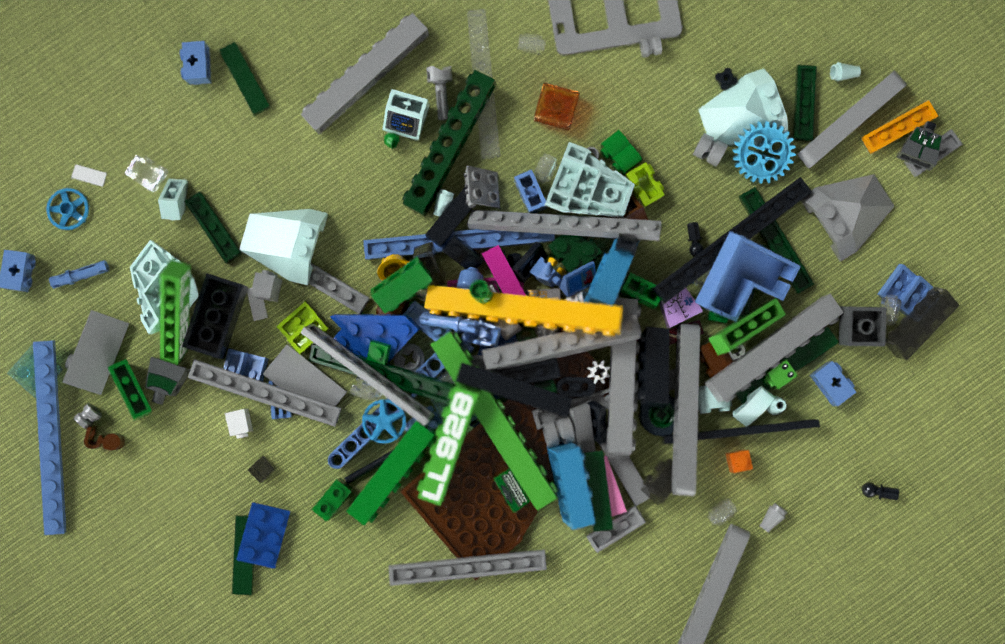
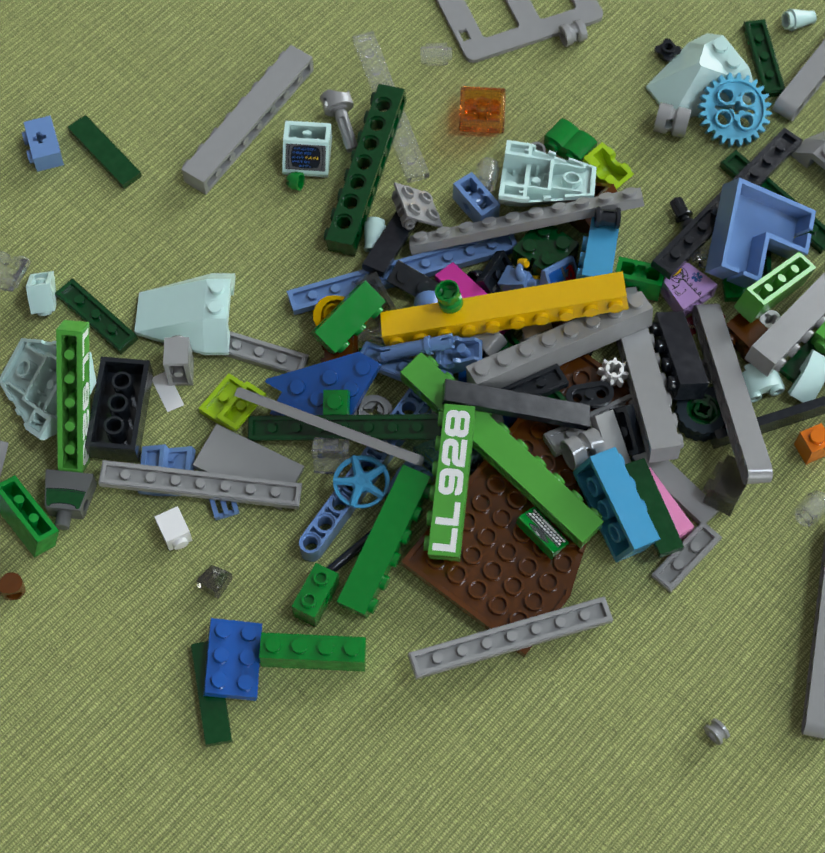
camera: 20 degrees left, 20 degrees down
(321, 543) = (313, 652): none -> green brick

